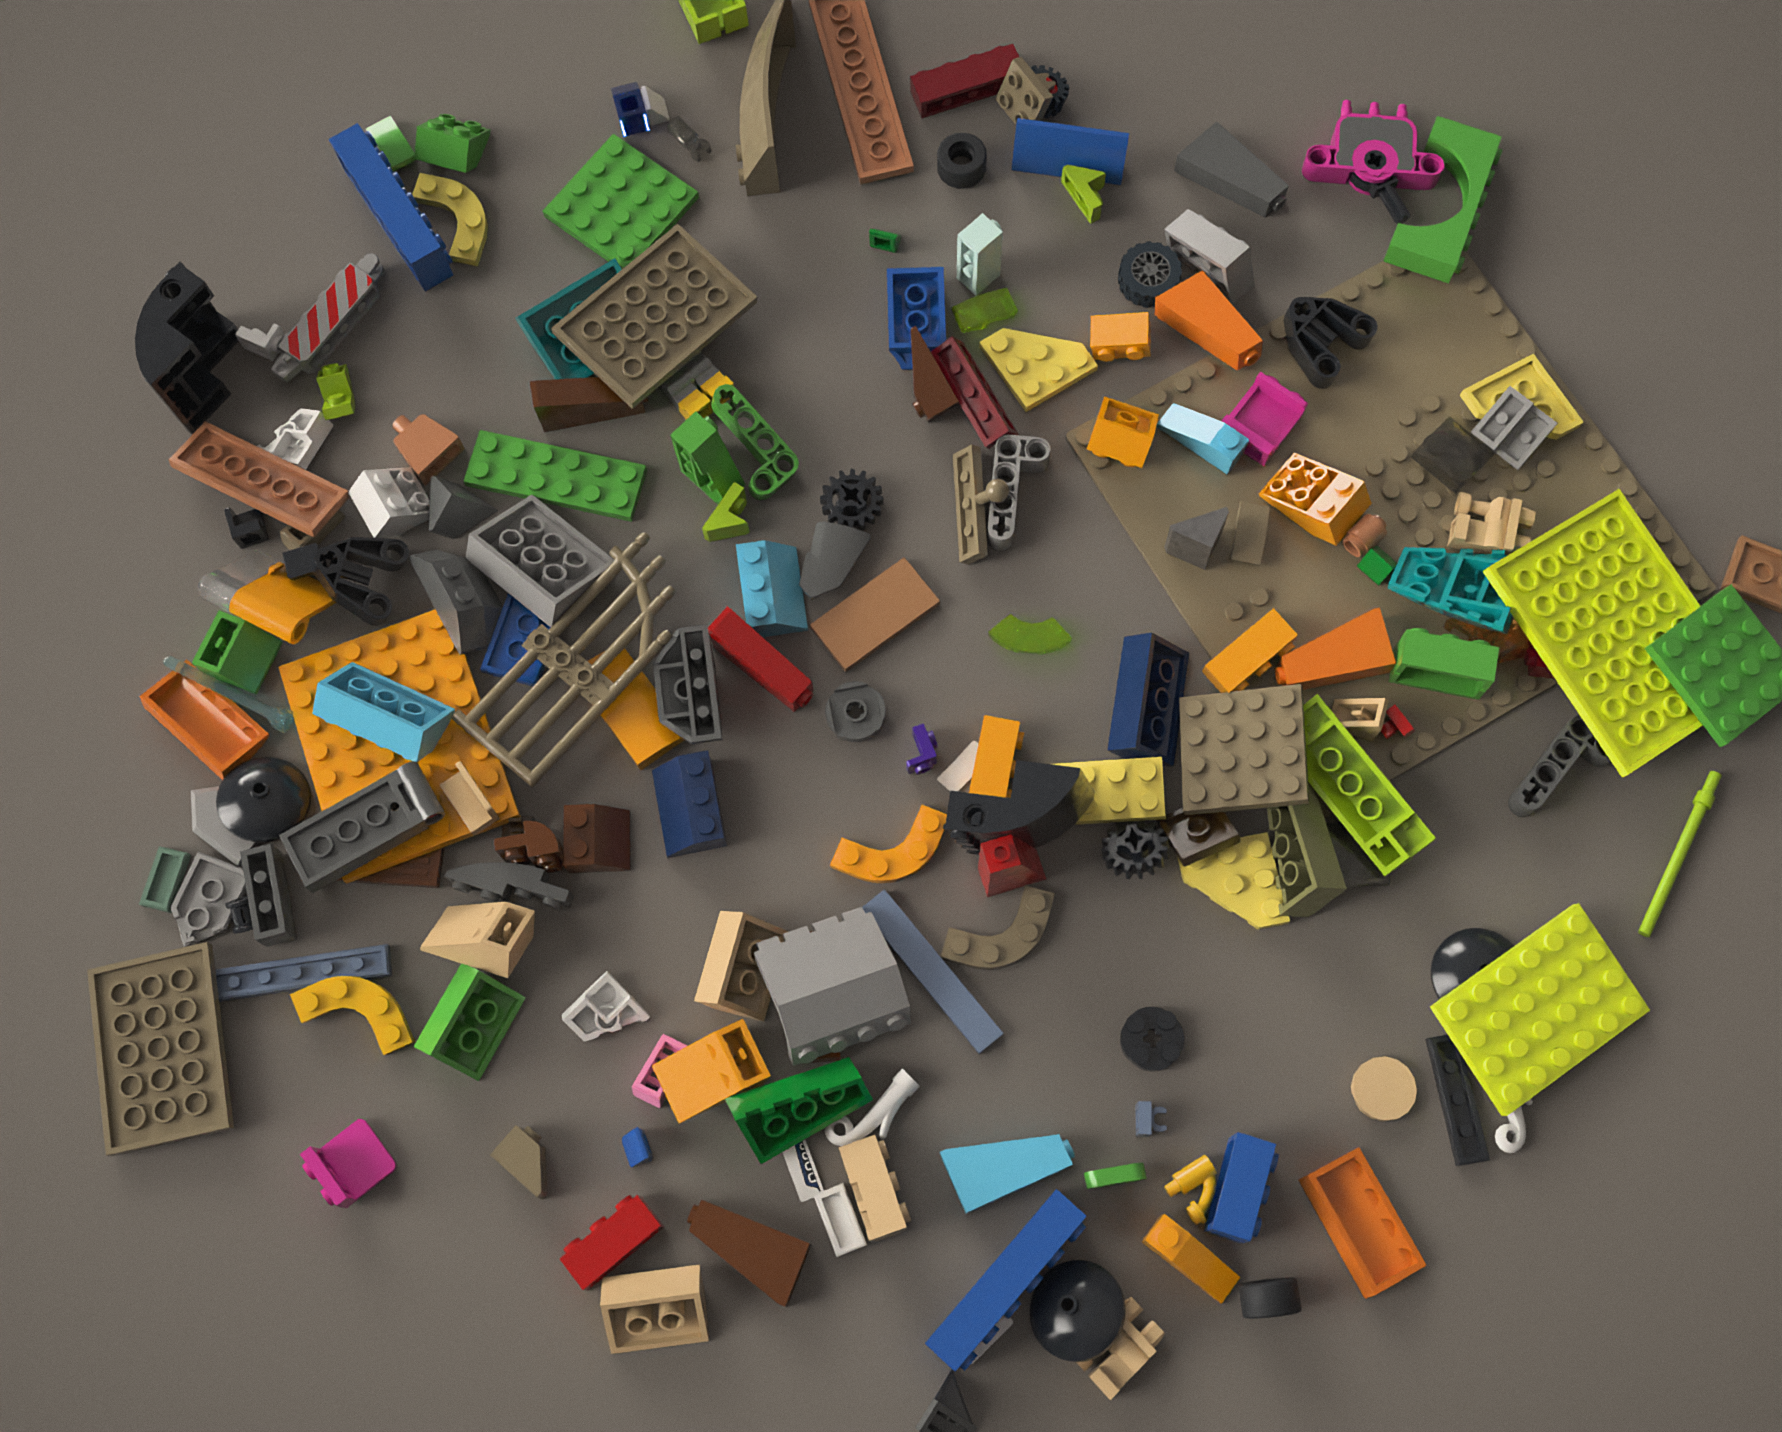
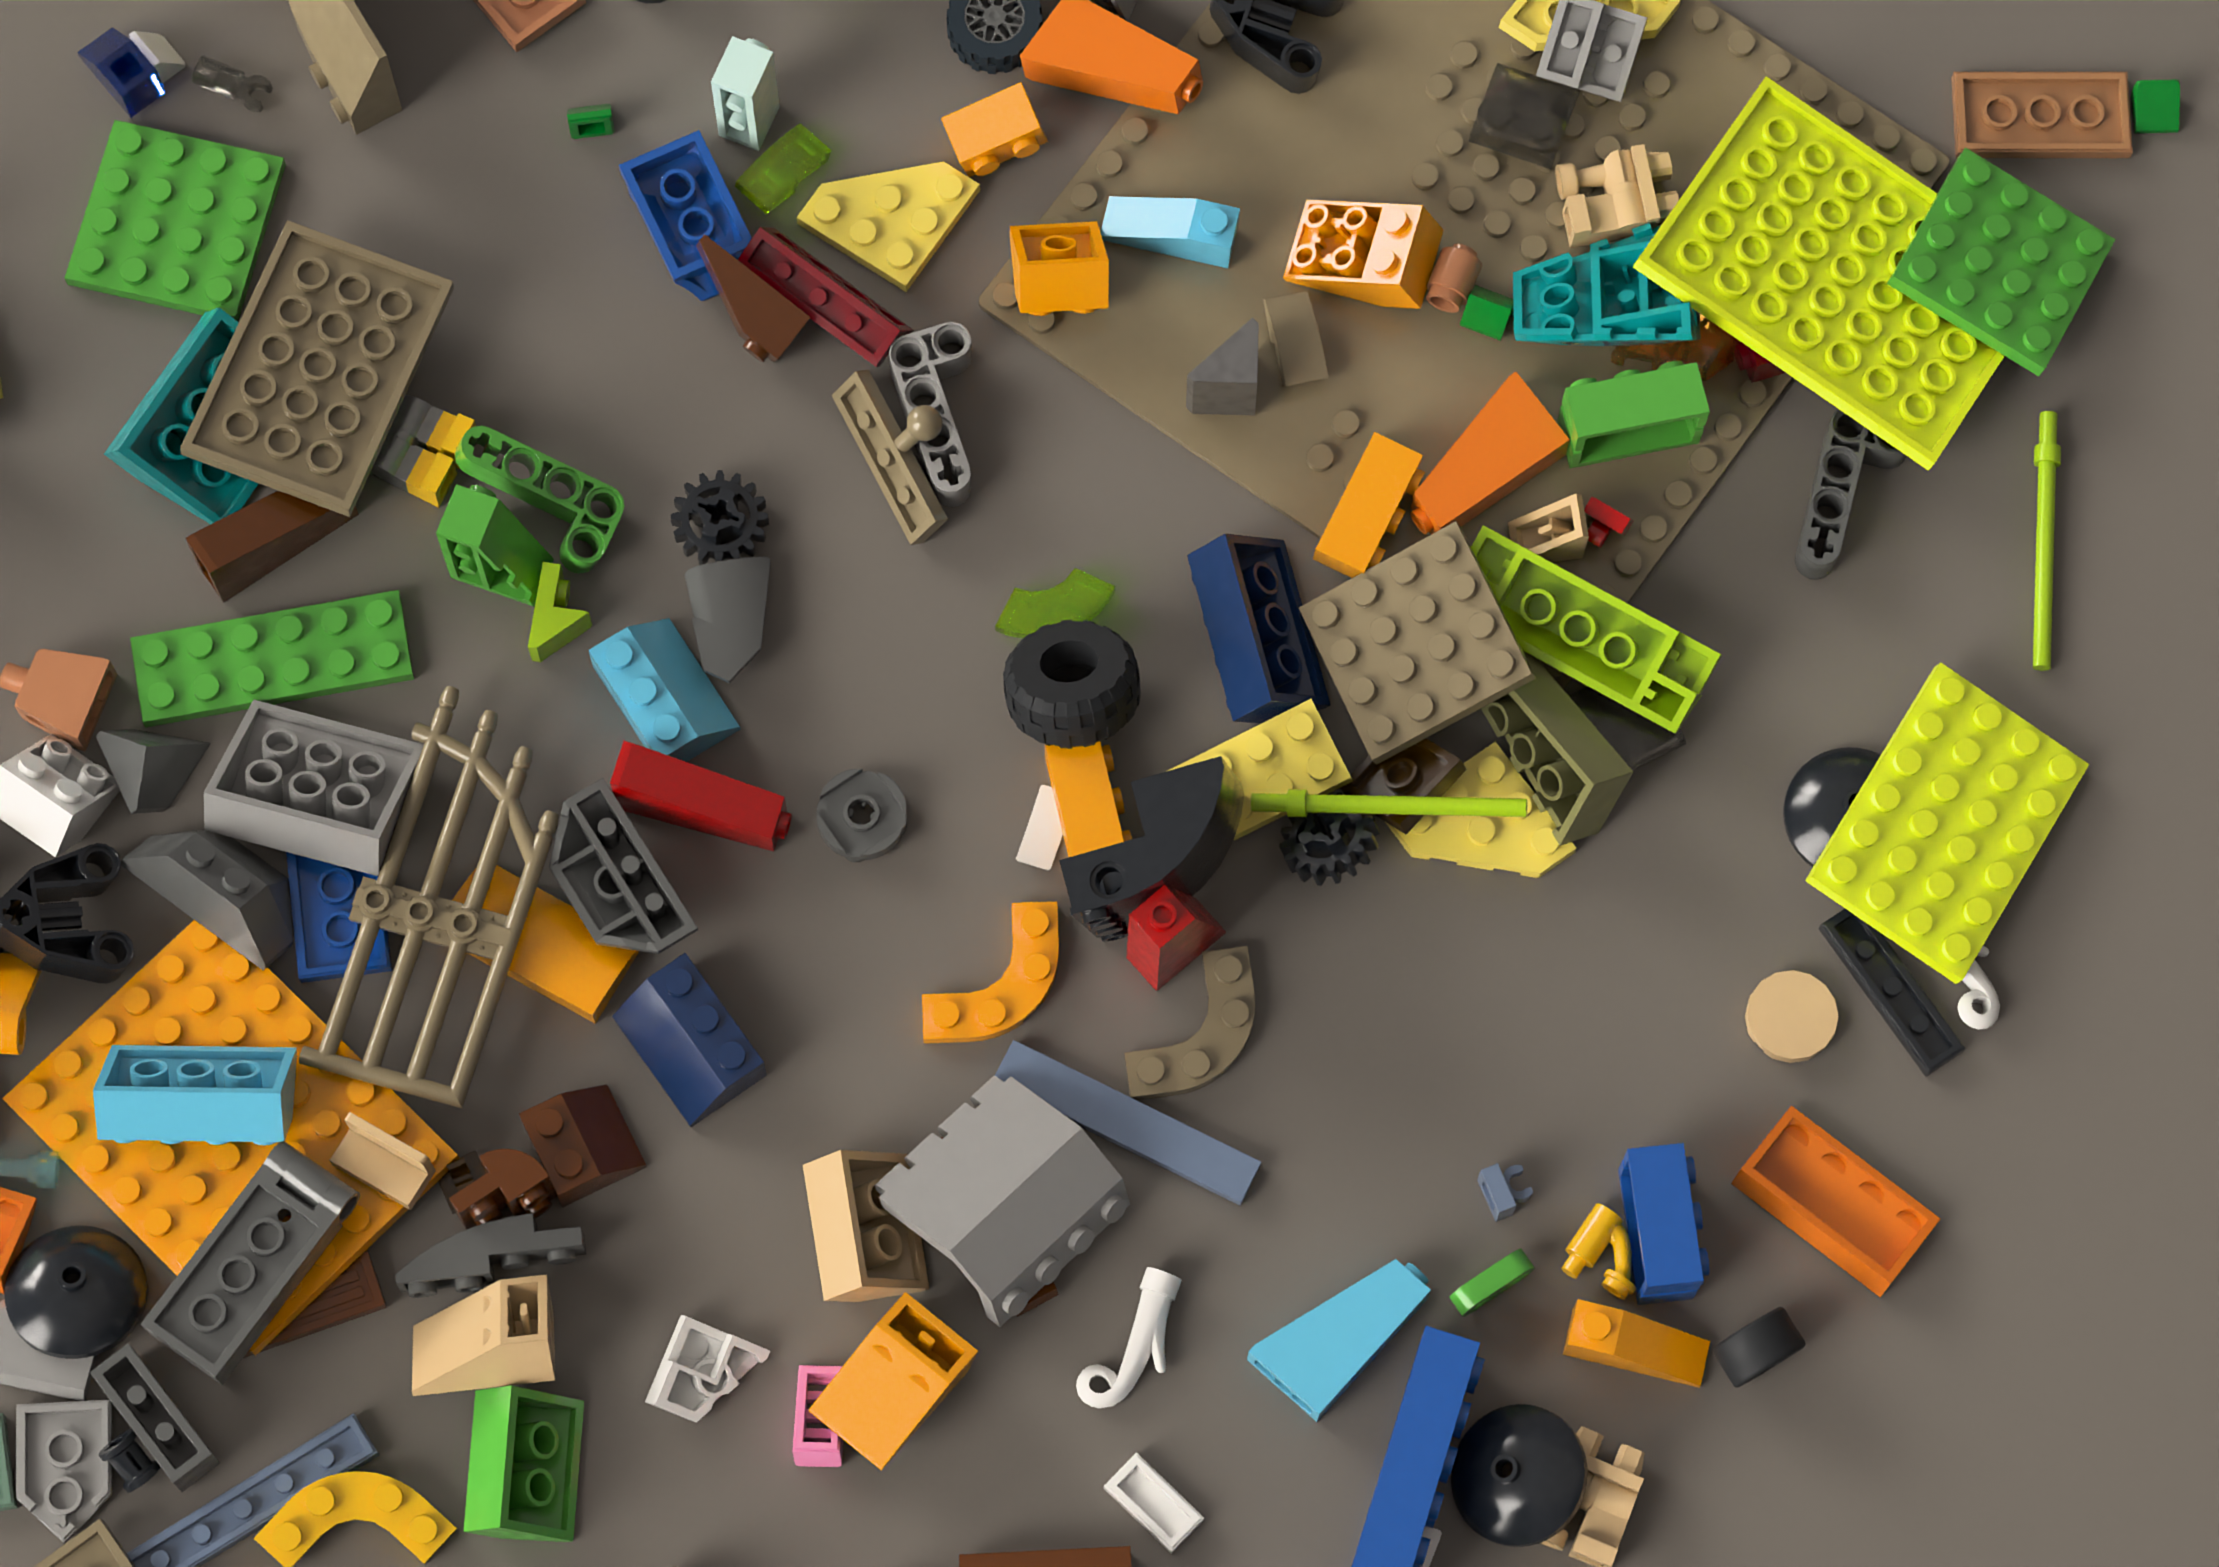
camera: 30 degrees left, 0 degrees up
(637, 1147) = (835, 1530): blue slope -> none
(797, 1106) = (1031, 1377): green wedge -> none
(803, 1171) = (1071, 1459): white sticker -> none
(874, 614) = (825, 667): medium nougat tile -> none
(874, 1188) = (1182, 1439): tan wedge -> none
(926, 744) = (981, 820): dark purple bracket -> none
(1016, 685) = (1072, 684): none -> black tyre
(1125, 819) = (1300, 803): none -> lime bar
(1163, 1024) = (1455, 1108): black plate -> none
(1266, 416) = (1246, 165): dark pink panel -> none

